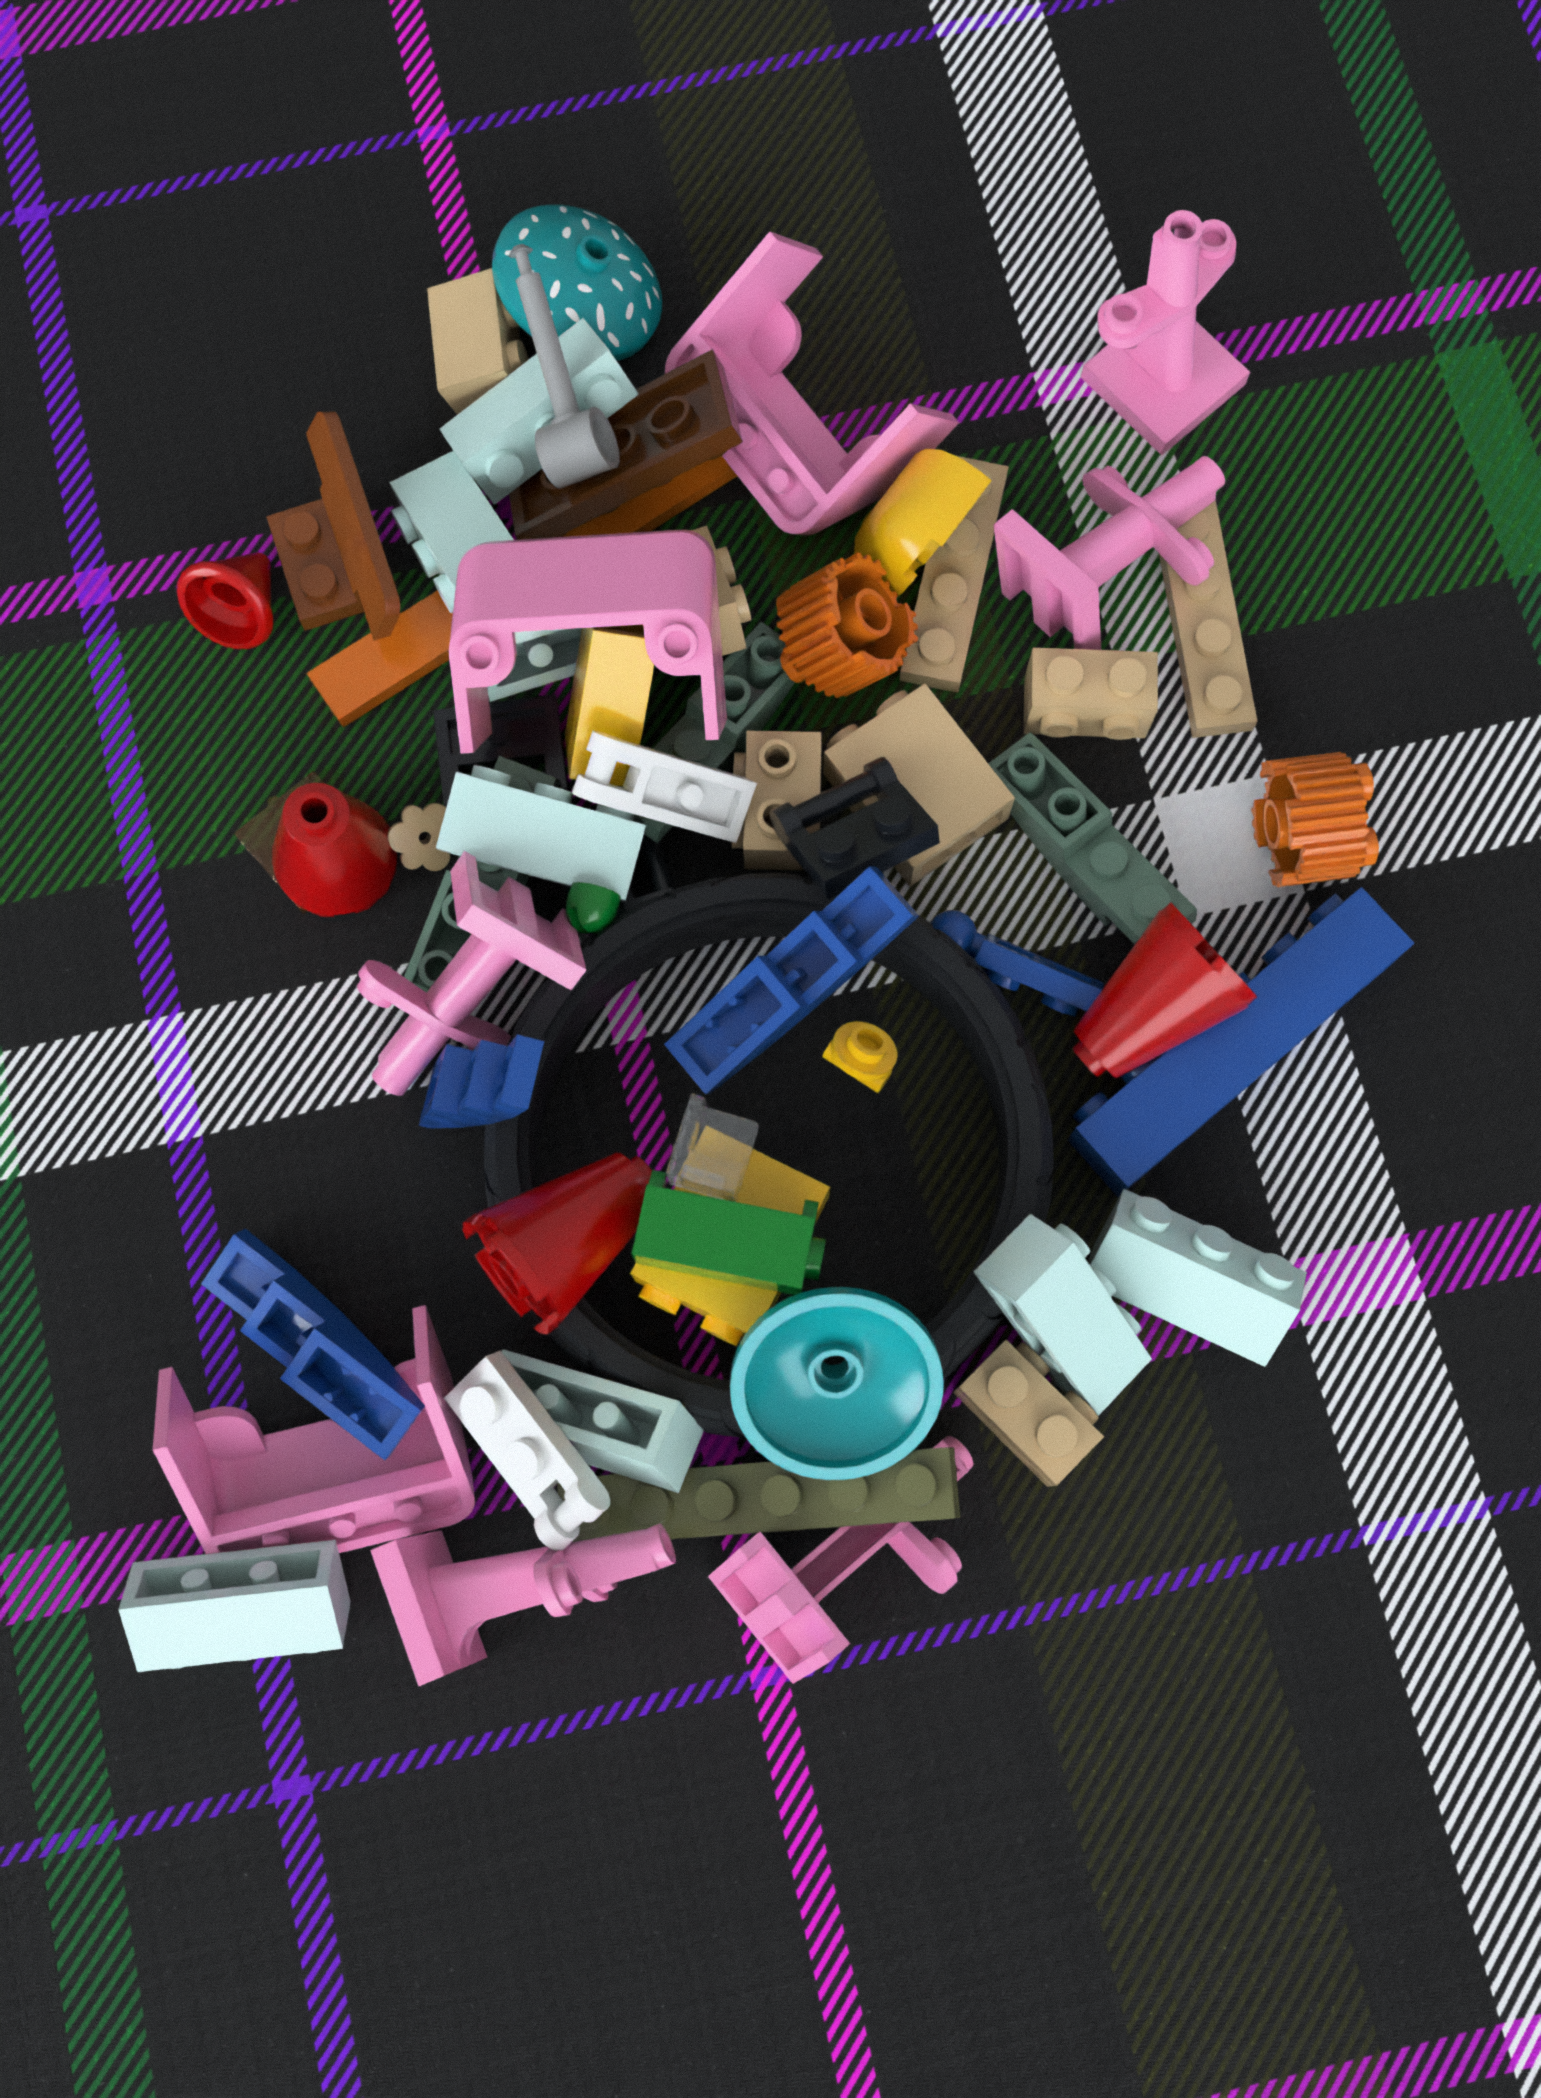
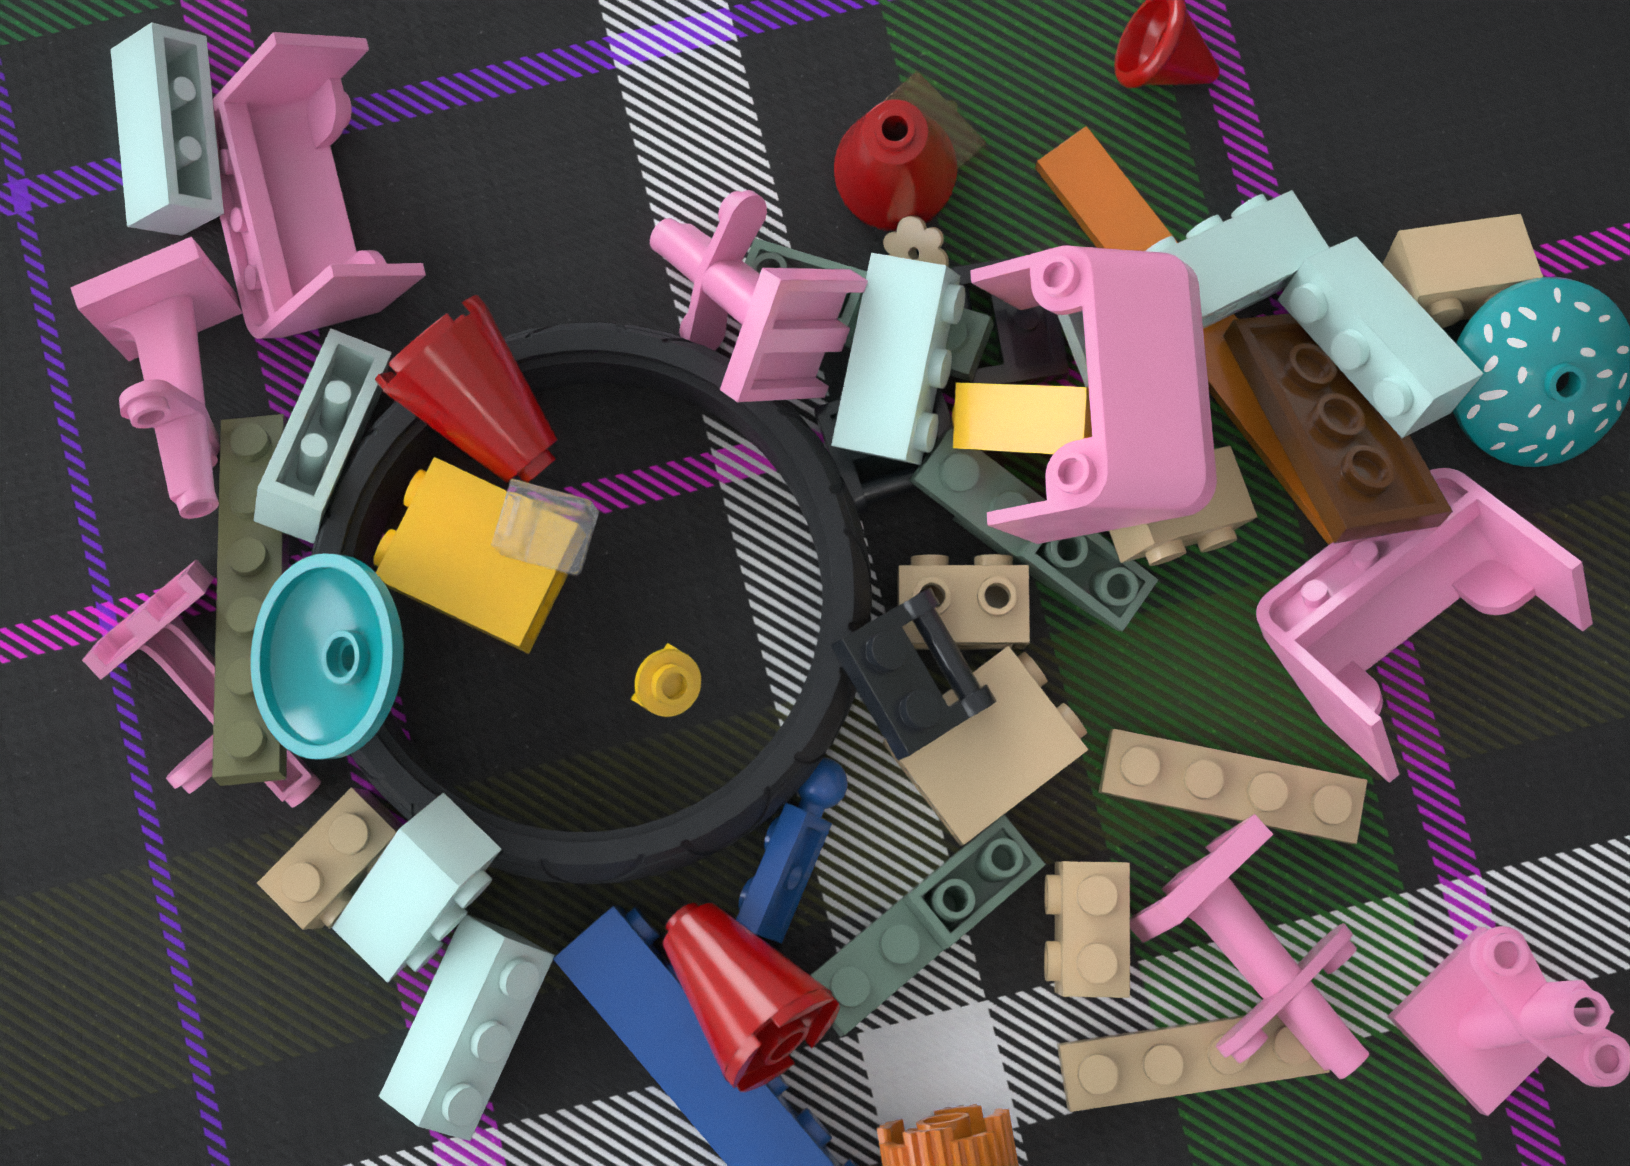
camera: 90 degrees right, 5 degrees up
(317, 1343) = (394, 194): blue slope -> none
(333, 544) = (1223, 136): dark orange plate -> none
(481, 1083) = (630, 311): blue slope -> none
(528, 1450) = (282, 377): white plate -> none
(576, 441) = (1329, 372): light grey piece -> none
(591, 907) = (820, 411): green hinge -> none
(665, 788) = (947, 478): white plate -> none
(727, 1239) = (453, 544): green brick -> none
(790, 980) = (742, 610): blue slope -> none
(844, 627) = (1146, 663): orange brick -> none
(919, 514) = (1273, 737): yellow brick -> none

